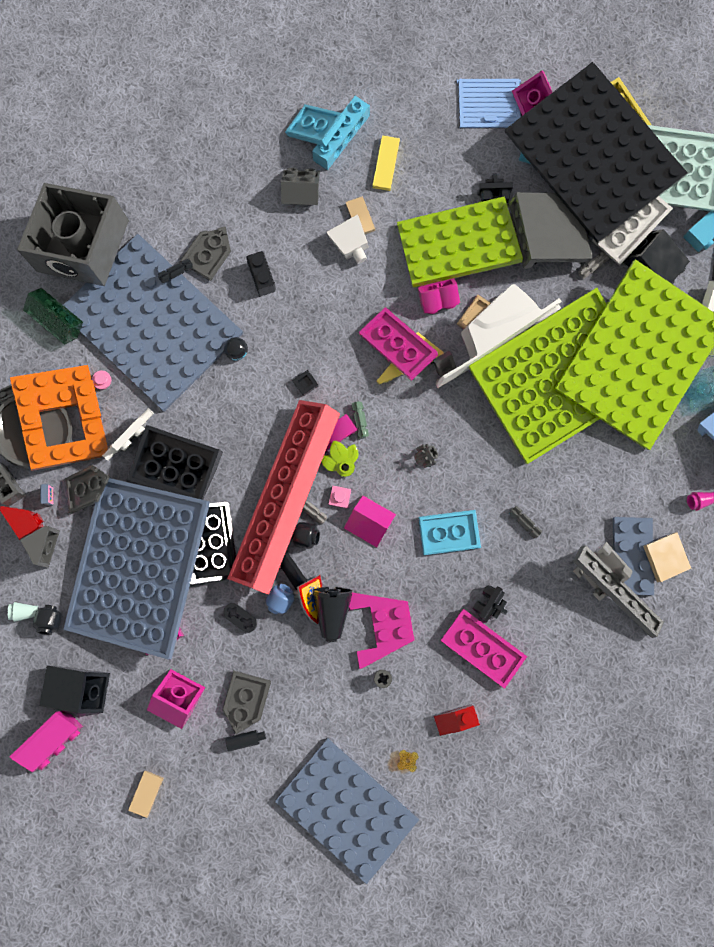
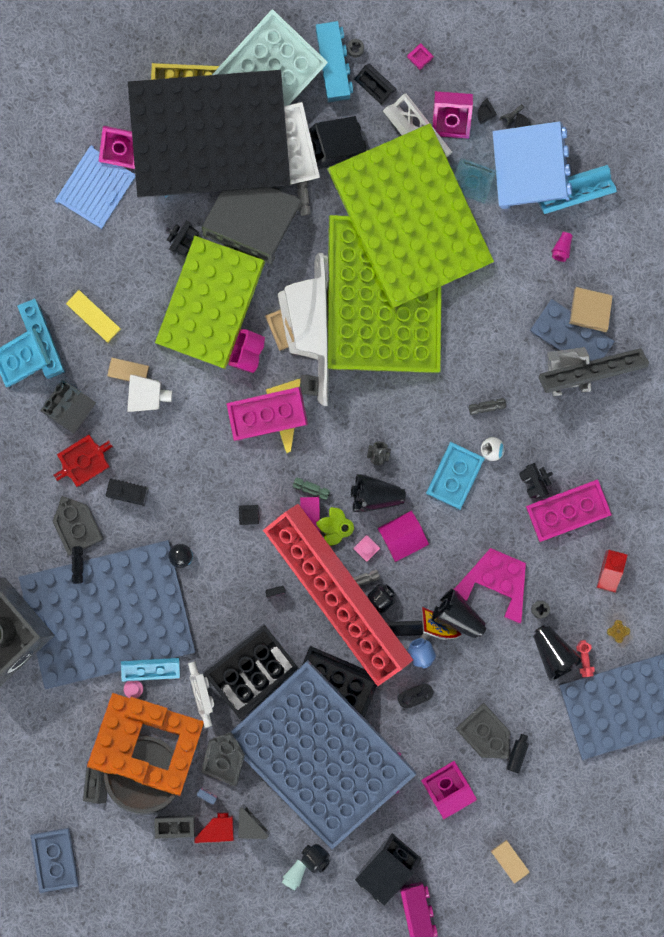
camera: 55 degrees left, 5 degrees up
(52, 315) = (50, 696): clear green brick -> none
(125, 382) = (150, 669): none -> medium azure tile
(251, 440) = (275, 591): none -> black tile
(264, 225) = (83, 460): none -> red plate
(353, 716) = (555, 653): none -> black cone
(373, 740) = (583, 647): none -> coral bar
(389, 474) = (375, 494): none -> black cone
(493, 549) = (492, 449): none -> white piece

